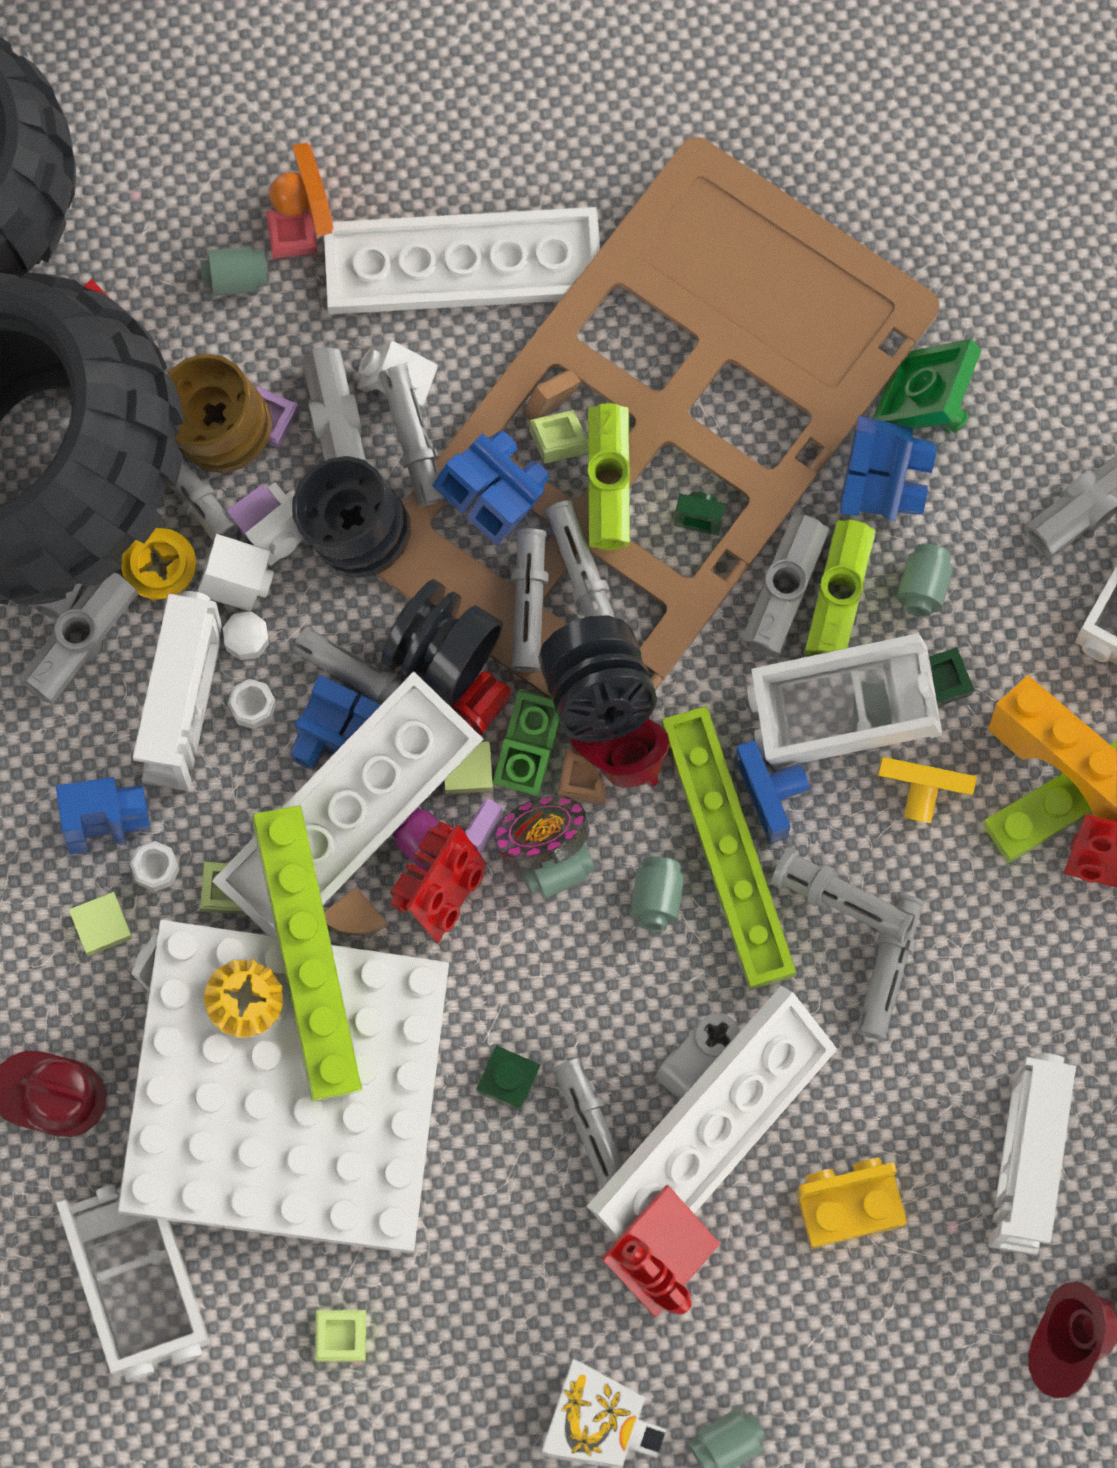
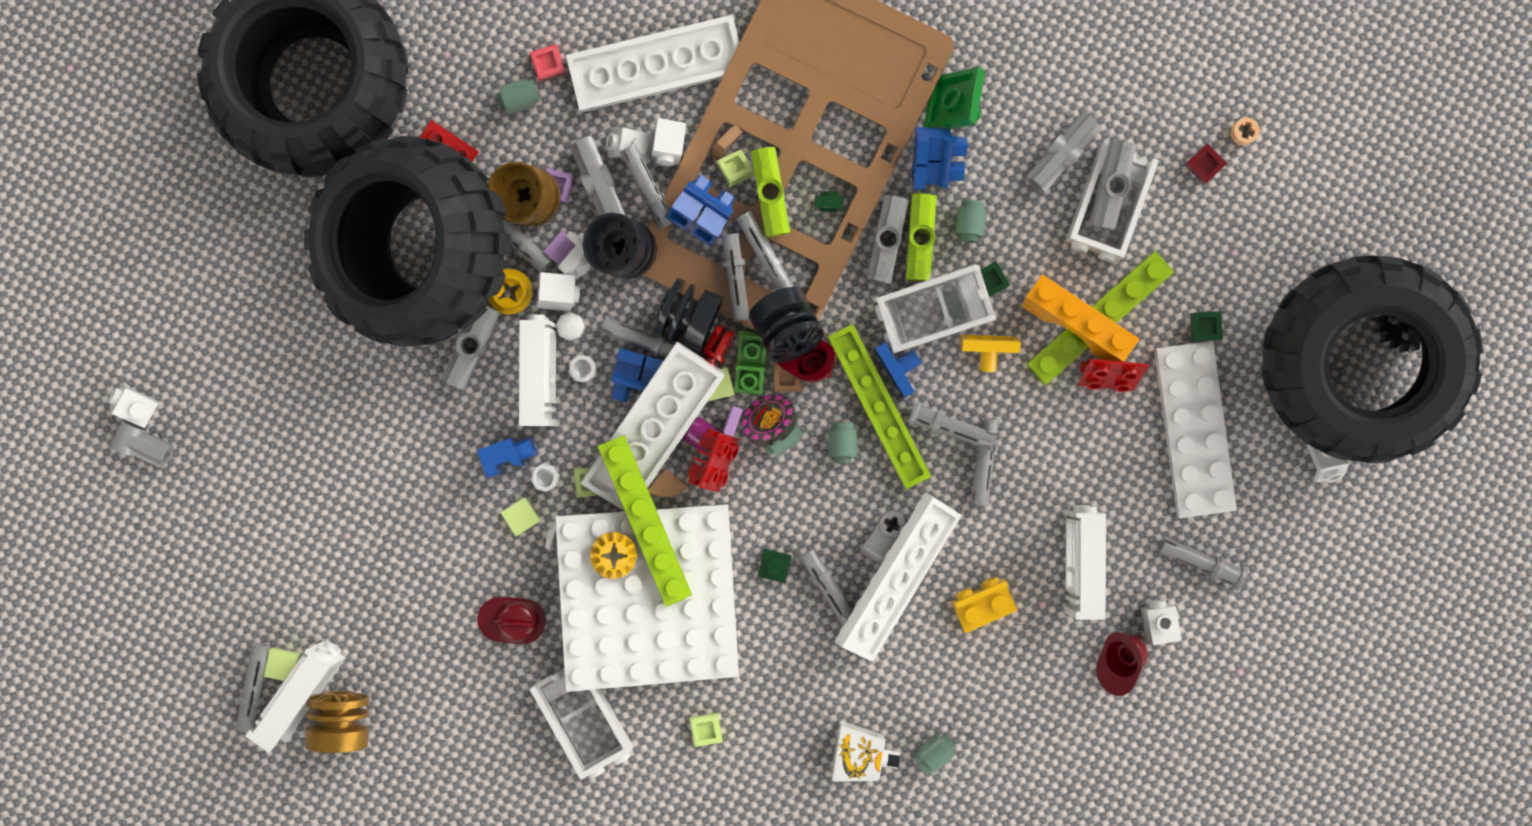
camera: 10 degrees left, 15 degrees up
(297, 192) = (546, 39): orange tile -> none
(459, 376) = (668, 142): none -> white brick
(661, 1254) = (880, 655): hinge -> none

